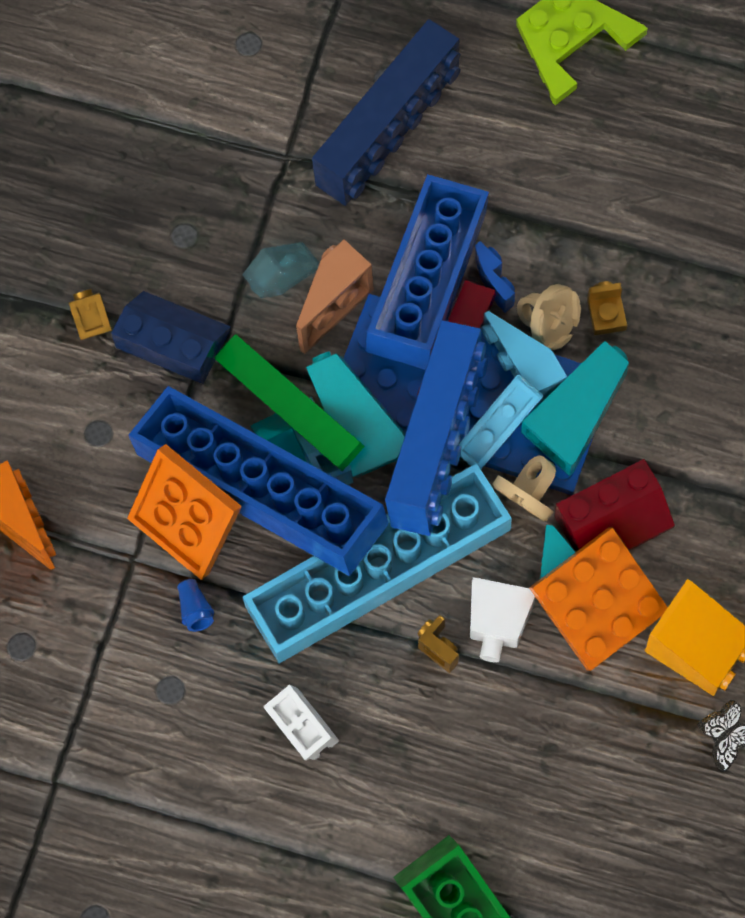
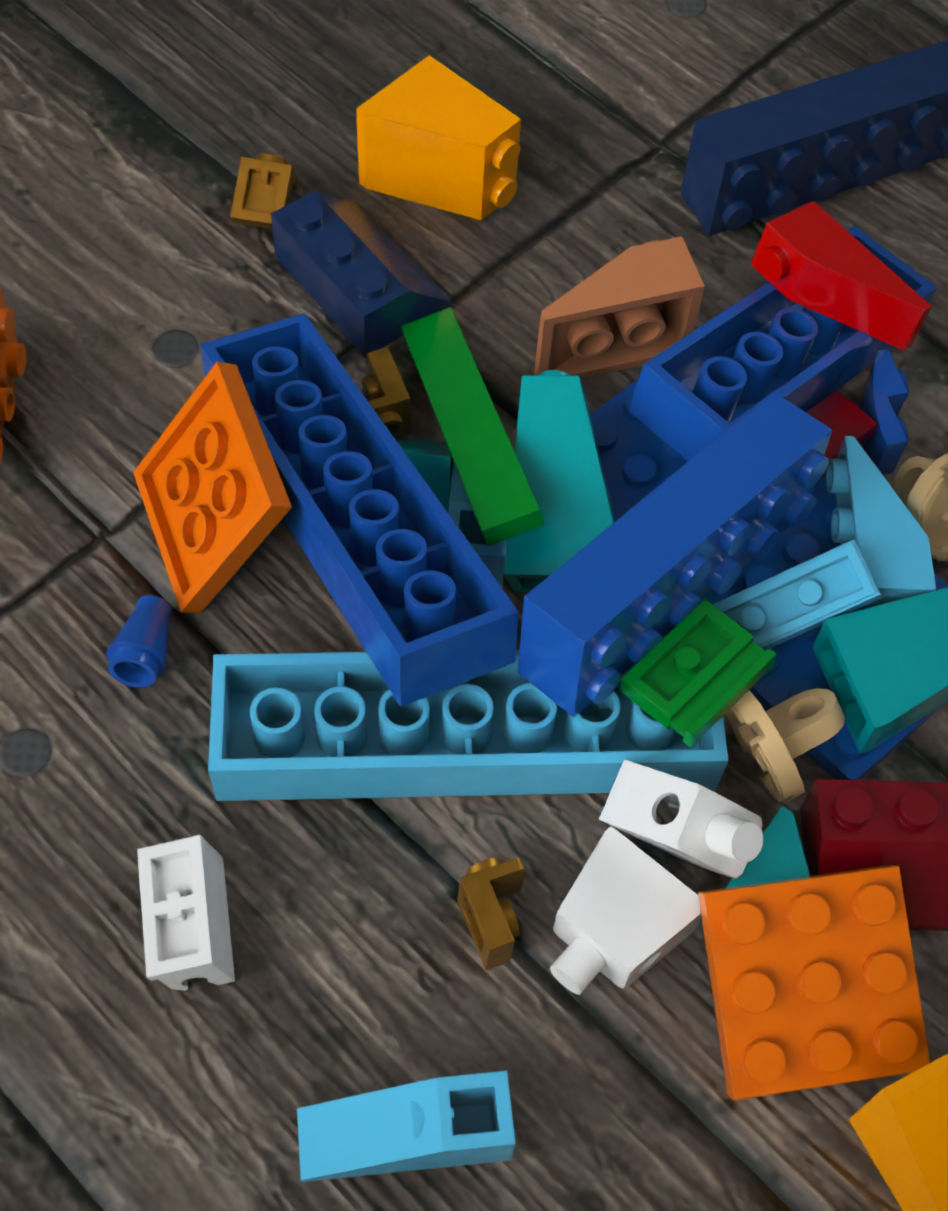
camera: 20 degrees right, 10 degrees down
(173, 235) = (438, 143): none -> light orange slope
(232, 403) = (387, 392): none -> pearl gold bracket
(280, 269) = (557, 252): clear light blue slope -> none
(433, 223) = (837, 276): none -> red slope
(457, 760) = (408, 1128): none -> medium azure slope
(476, 483) = (697, 672): none -> green plate
(519, 556) = (706, 830): none -> white torso

